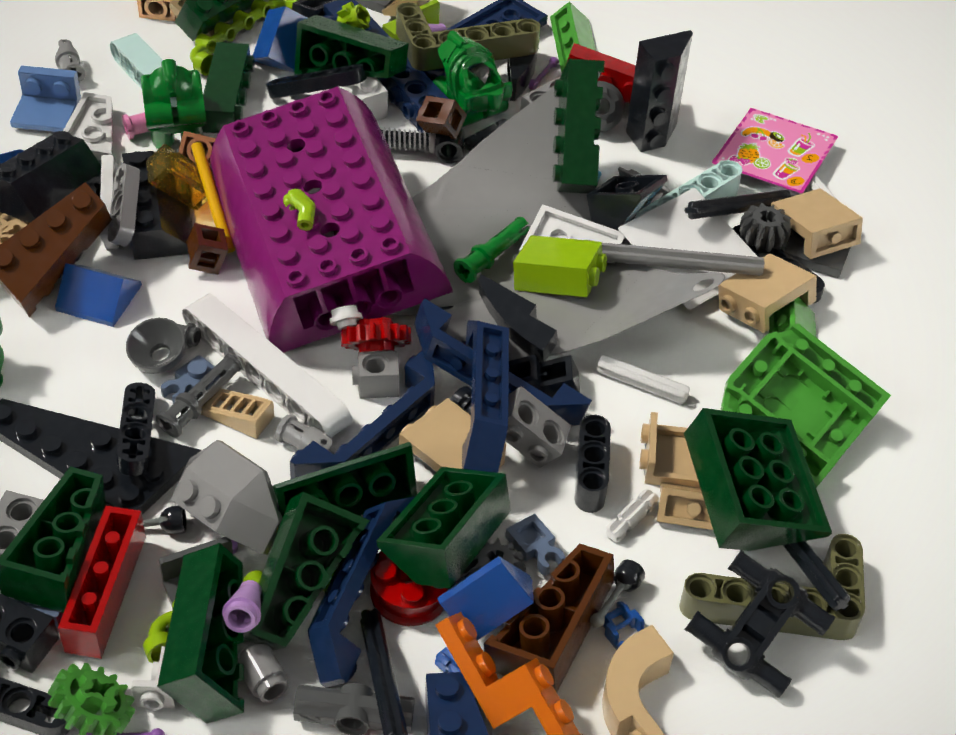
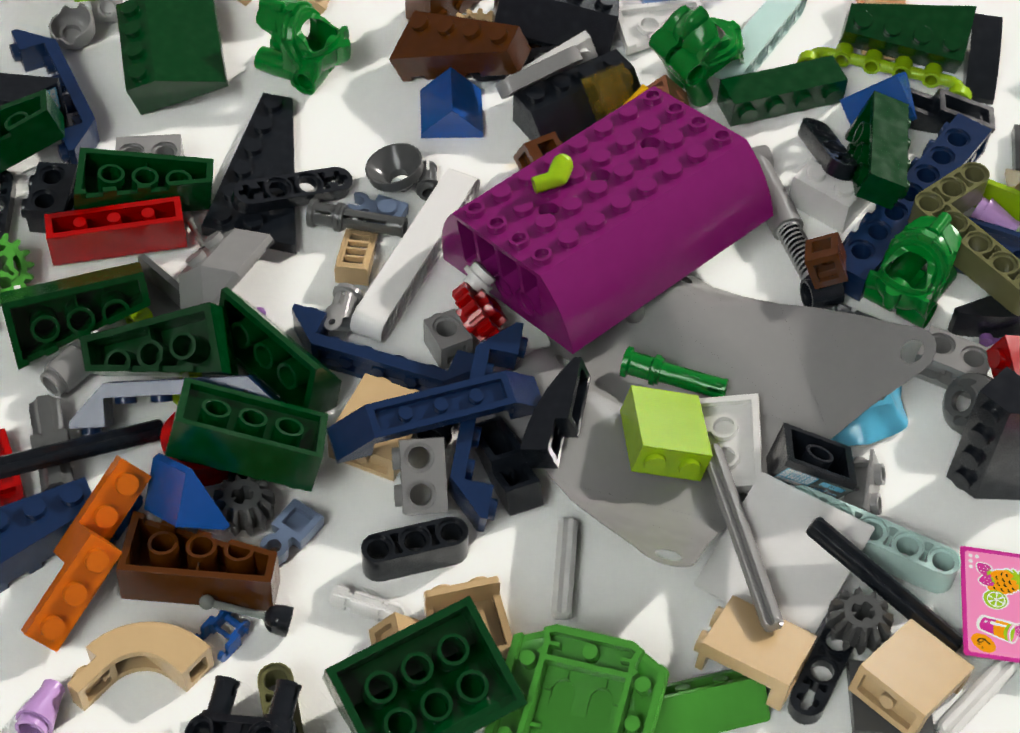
camera: 70 degrees right, 5 degrees up
(243, 609) = (94, 317): lavender cone -> none
(354, 15) = (930, 146): lime gear -> none
(577, 126) = (860, 370): dark green wedge -> none

